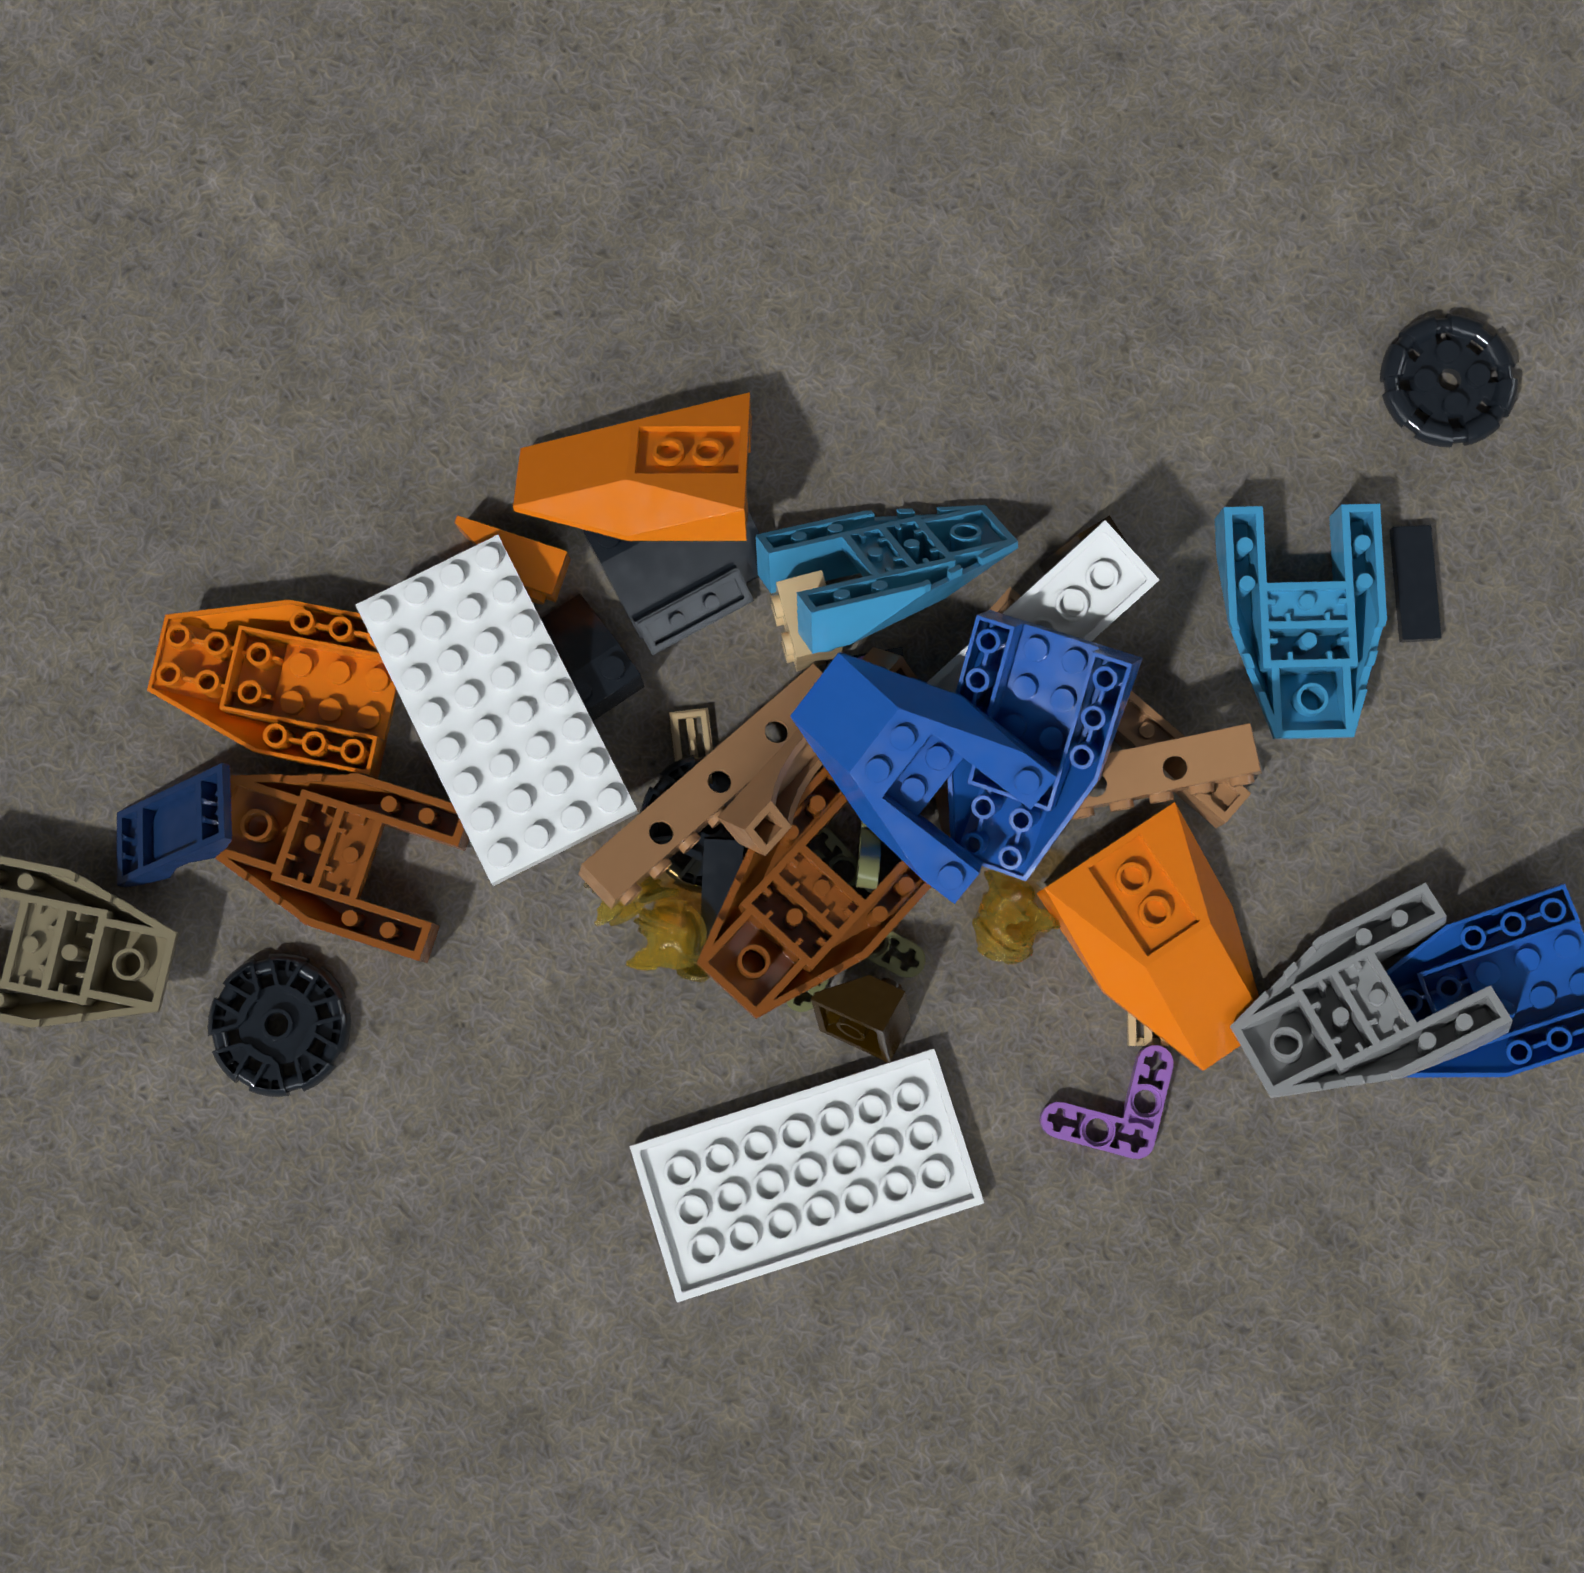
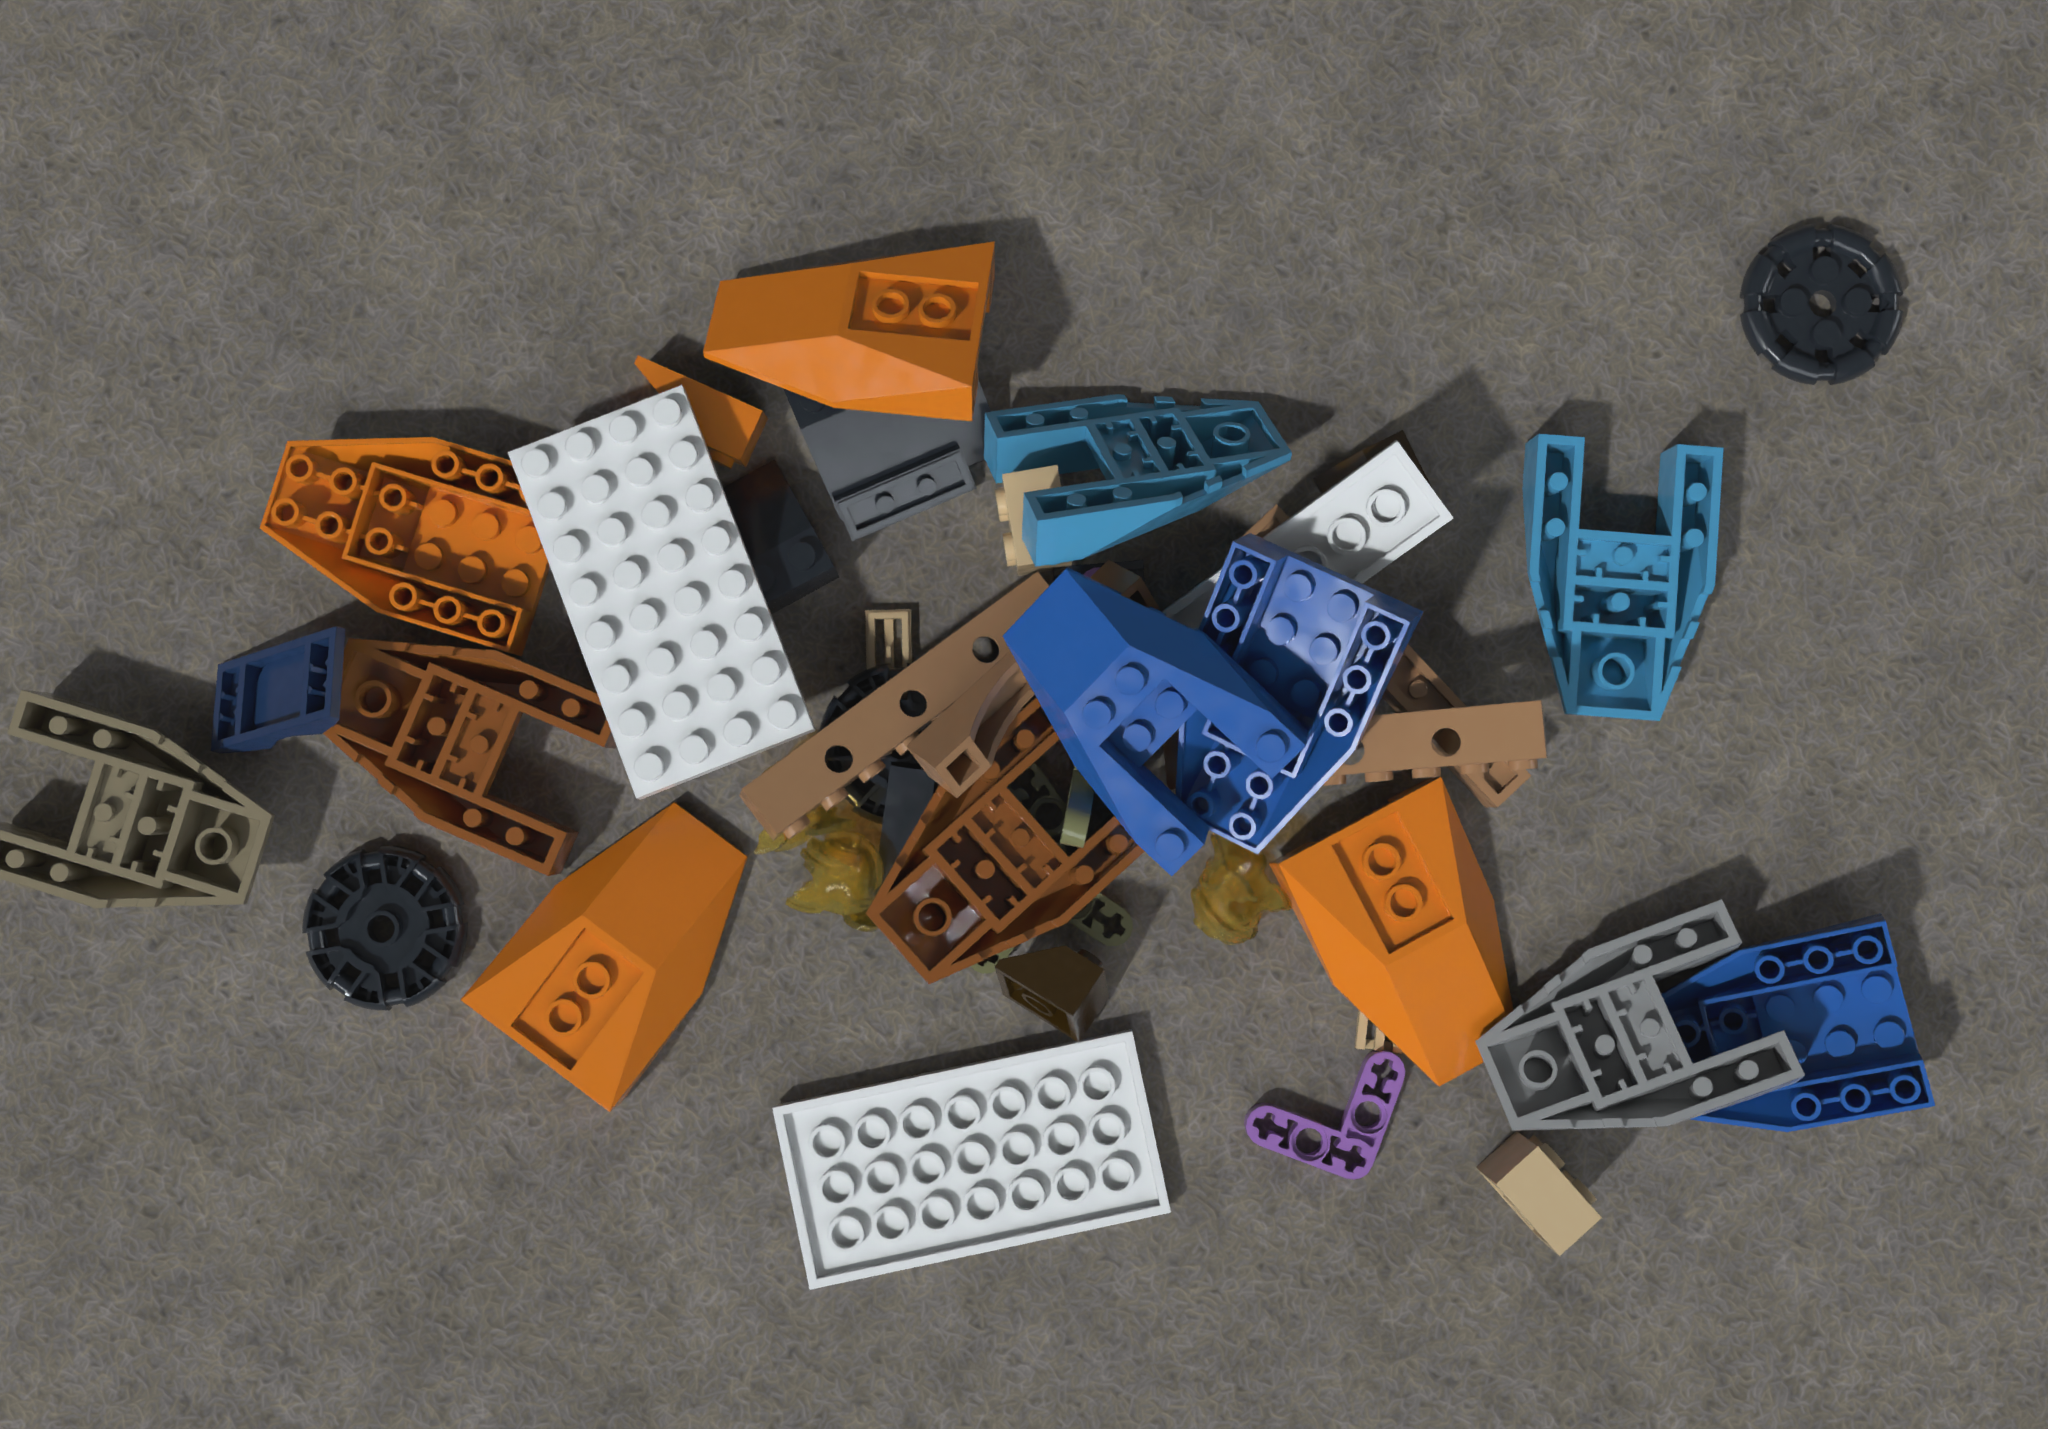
camera: 10 degrees right, 5 degrees up
(482, 1026) = (616, 954): none -> orange wedge
(1301, 1150) = (1539, 1193): none -> tan brick
(1415, 583) = (1751, 543): black tile -> none

